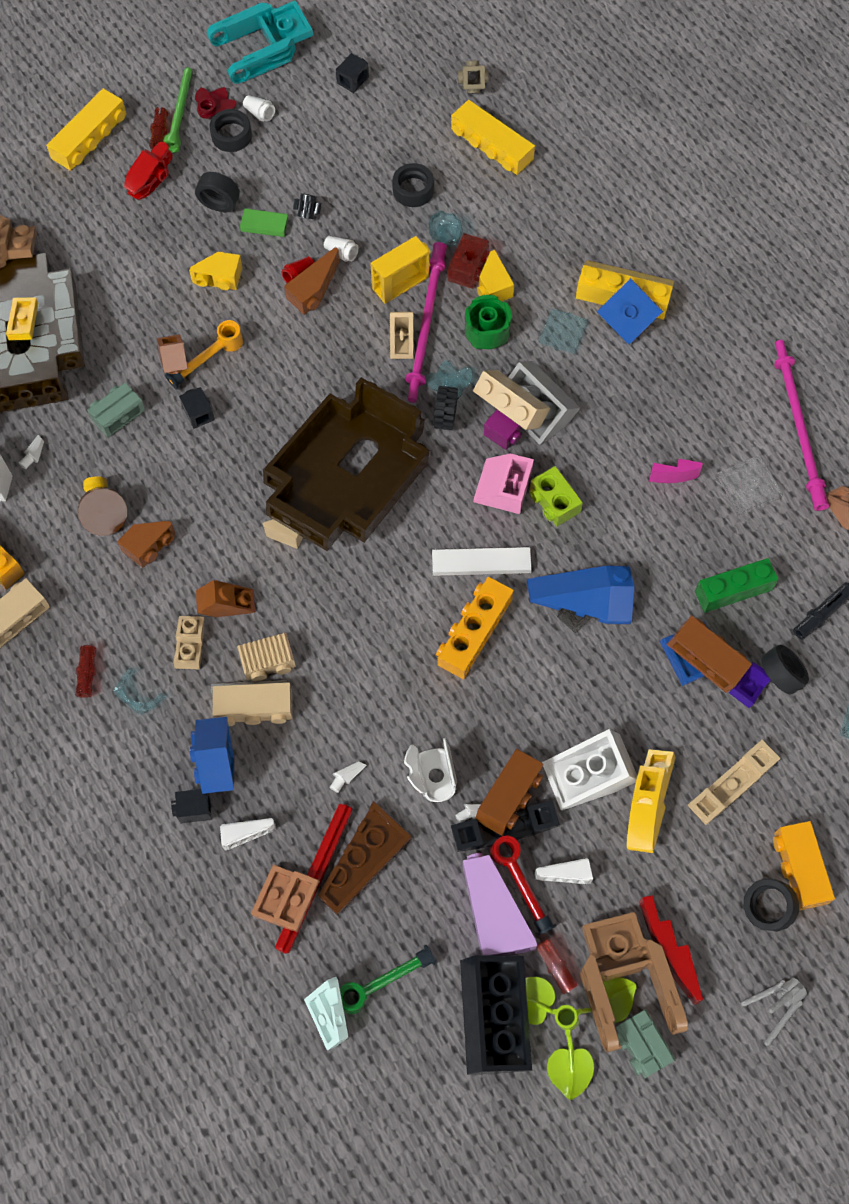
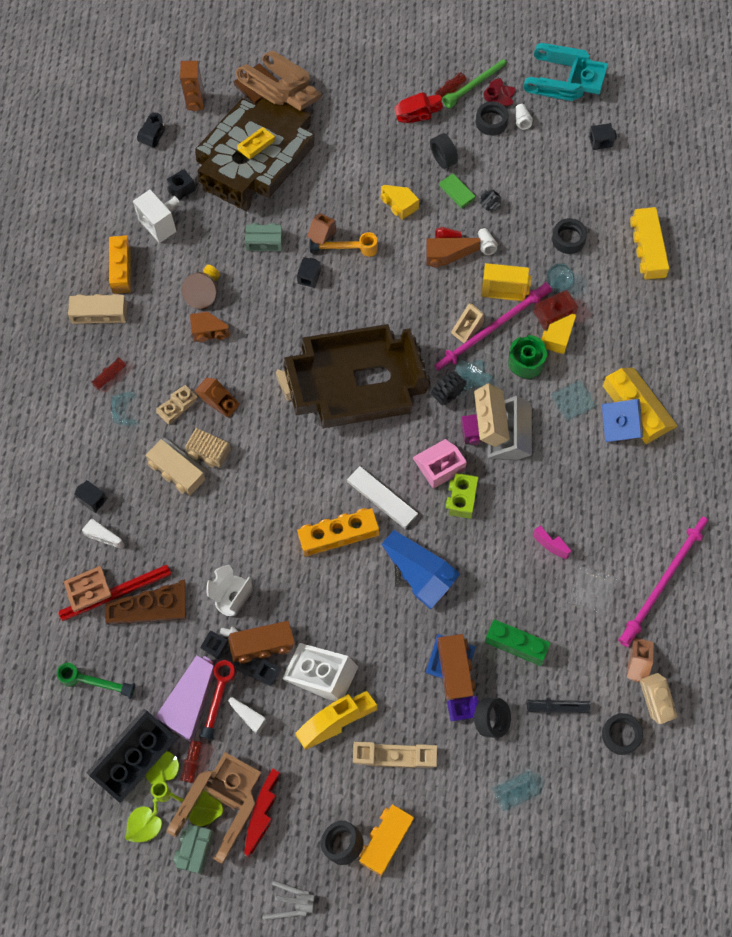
camera: 45 degrees right, 0 degrees up
(32, 453) = (198, 226): white bar -> none
(87, 129) = (408, 55): yellow brick -> none
(213, 755) = (122, 476): blue brick -> none
(328, 1013) = (47, 671): light aqua wing -> none
(346, 775) = (186, 552): white bar -> none
(478, 83) = (670, 194): dark tan brick -> none

